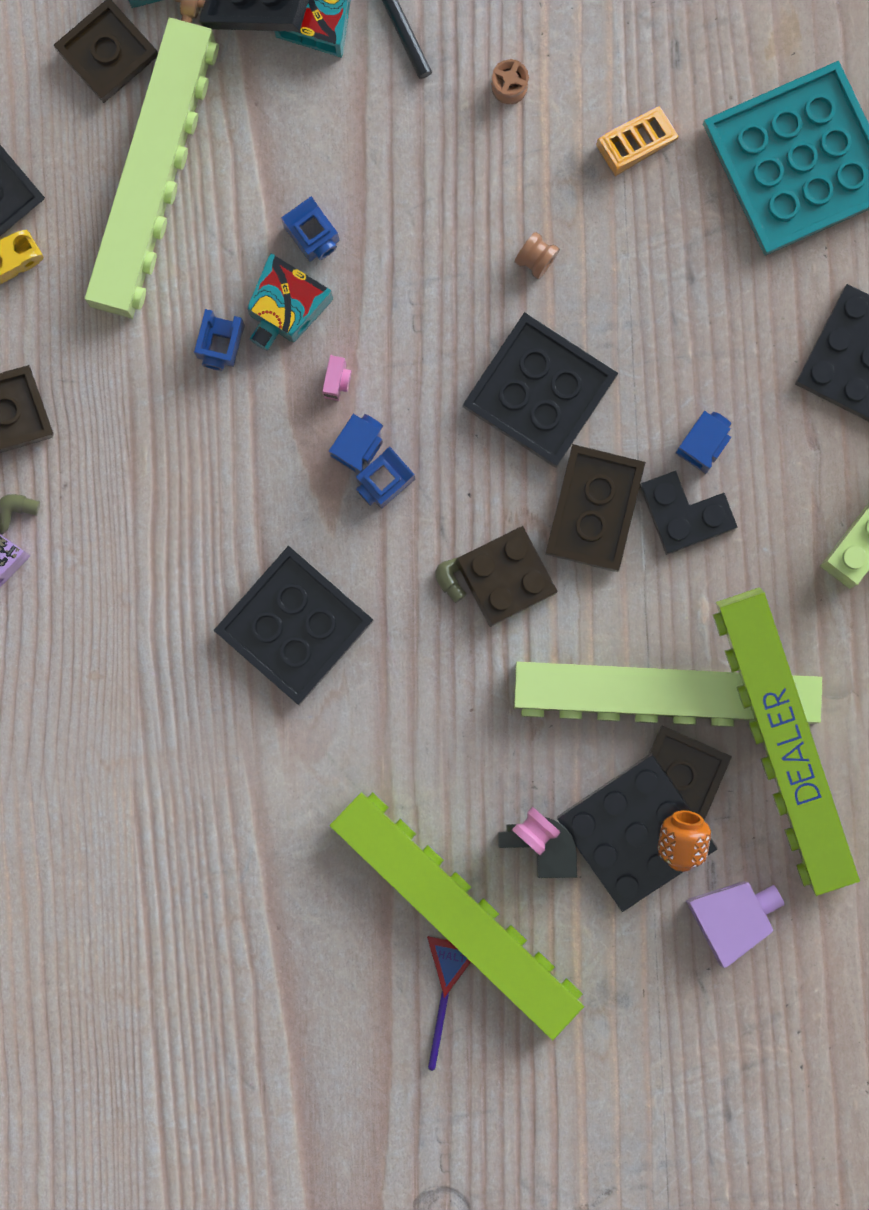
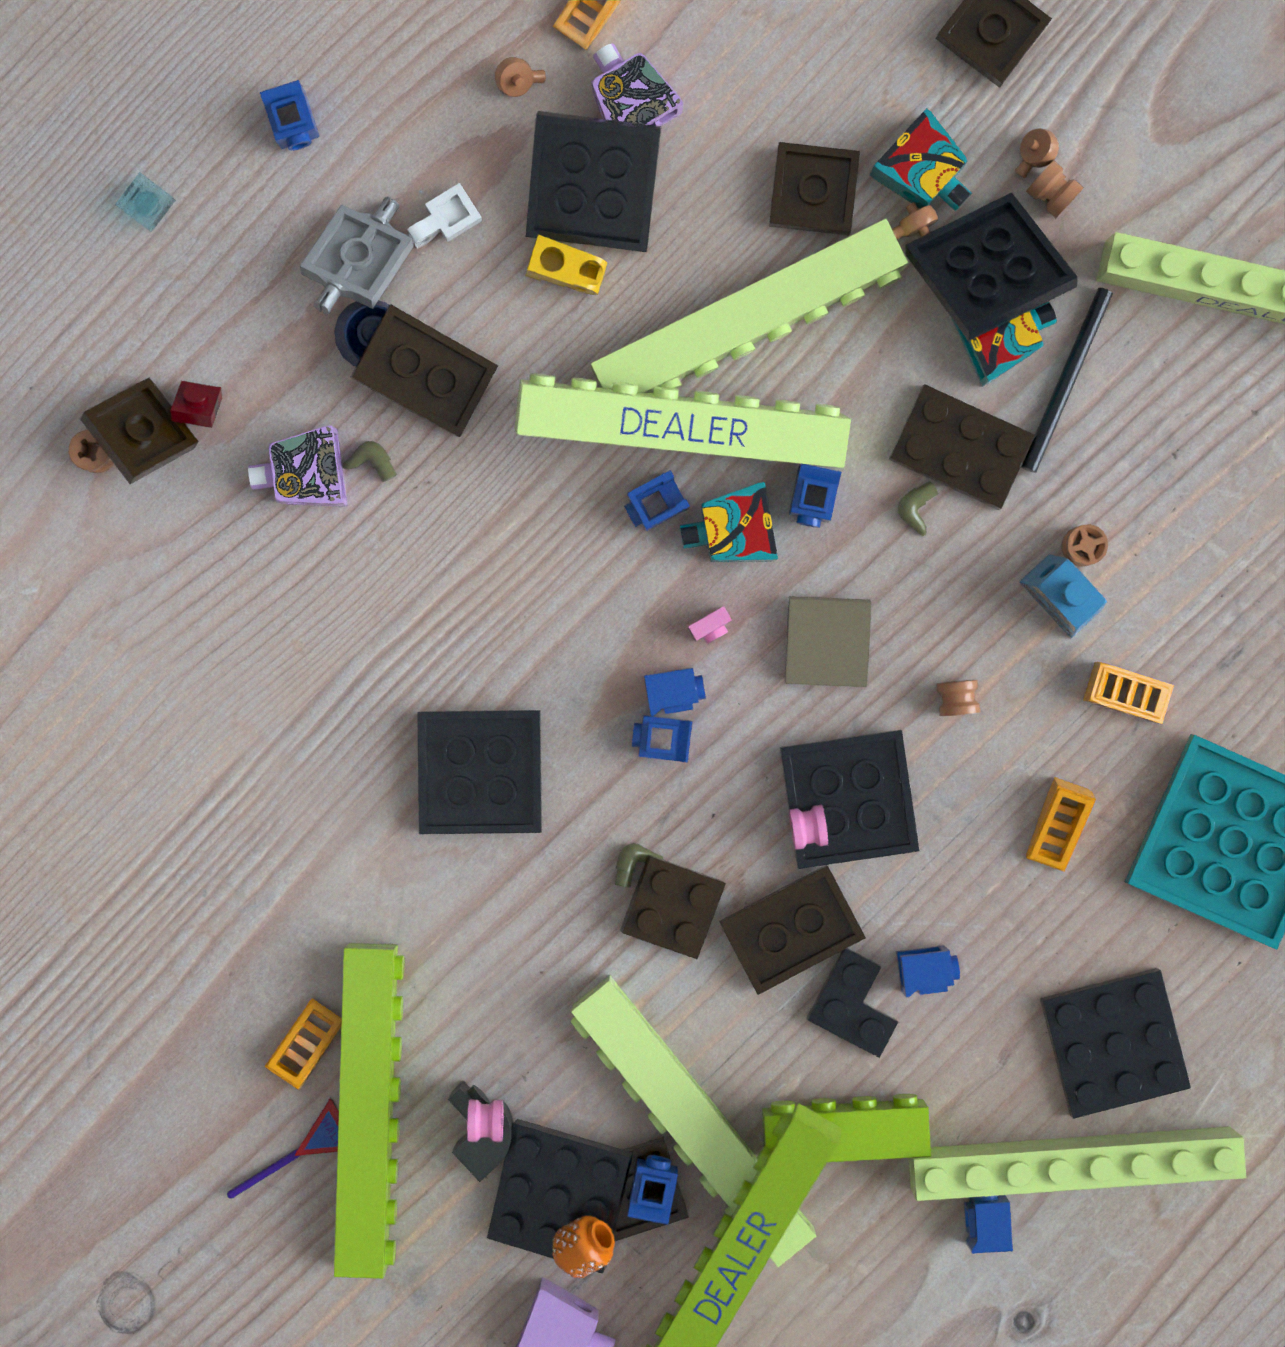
camera: 40 degrees right, 5 degrees up
(179, 272) = (681, 422): none -> yellowish green brick
(369, 105) = (962, 447): none -> dark brown plate
(376, 170) = (912, 501): none -> olive animal
(385, 950) = (274, 1063): none -> light orange slope
(419, 310) = (828, 641): none -> dark tan slope
(530, 122) = (1064, 593): none -> dark azure torso
(532, 430) = (808, 827): none -> bright pink wheel
(697, 774) = (654, 1169): none -> blue window
(698, 258) = (1053, 803): none -> light orange slope
(781, 575) = (868, 1127): none -> lime brick

